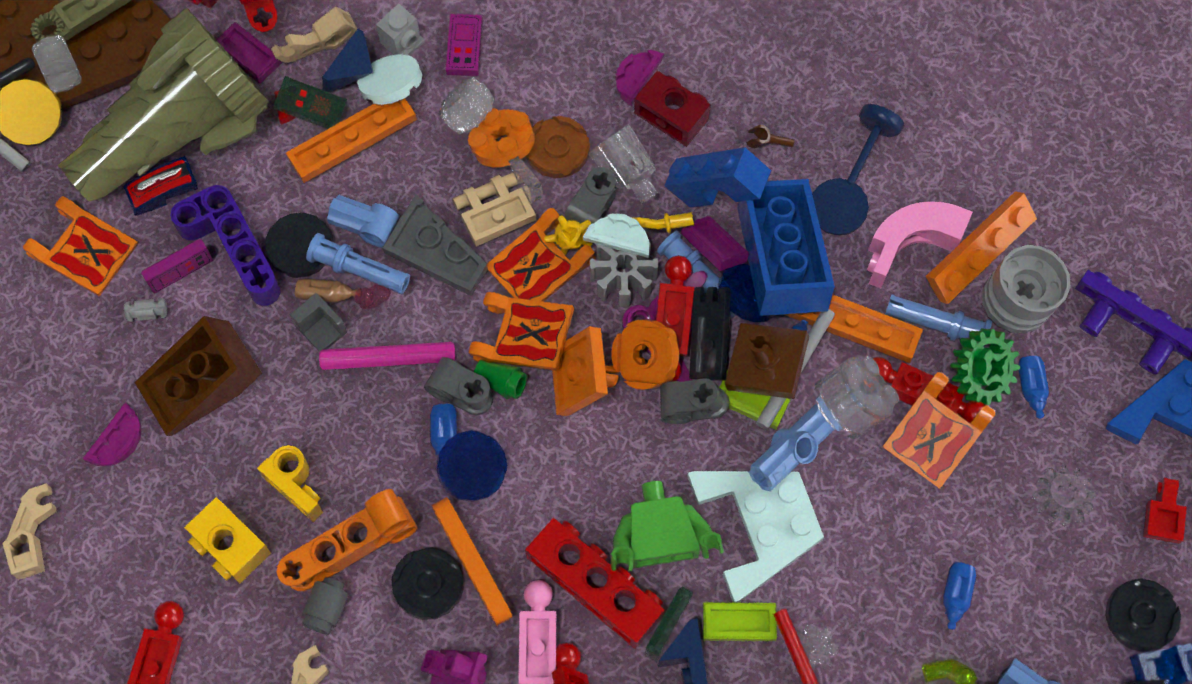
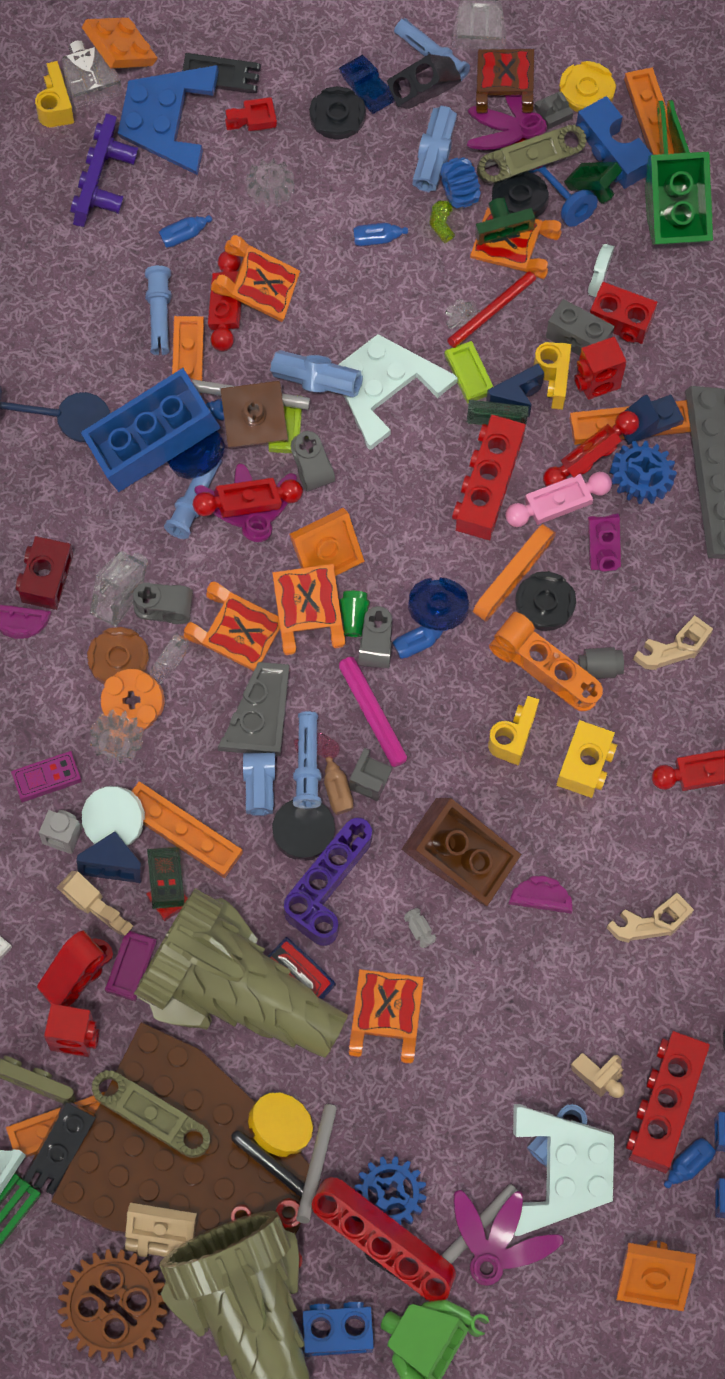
camera: 115 degrees left, 0 degrees up
(56, 63) = (230, 1102): clear gear -> none
(177, 266) = (370, 916): magenta tile -> none
(496, 216) = (208, 674): tan plate -> none
(570, 233) = (203, 604): yellow piece -> none
(609, 277) = (205, 550): light grey gear -> none
(619, 233) = (193, 558): light aqua tile -> none
(661, 531) = (428, 443): bright green torso -> none
(663, 349) = (274, 502): orange plate -> none
(710, 333) = (250, 464): black hinge -> none
(715, 243) = (163, 492): magenta tile -> none
(732, 171) = (111, 497): blue arch -> none
(764, 136) = (42, 493): reddish brown hand -> none
(855, 396) = (260, 338): clear brick -> none
(916, 223) = (87, 357): bright pink arch -> none
(981, 247) = (71, 293): orange plate -> none
(985, 366) = (189, 260): green gear -> none
(1037, 277) = (111, 249): light grey wheel -> none

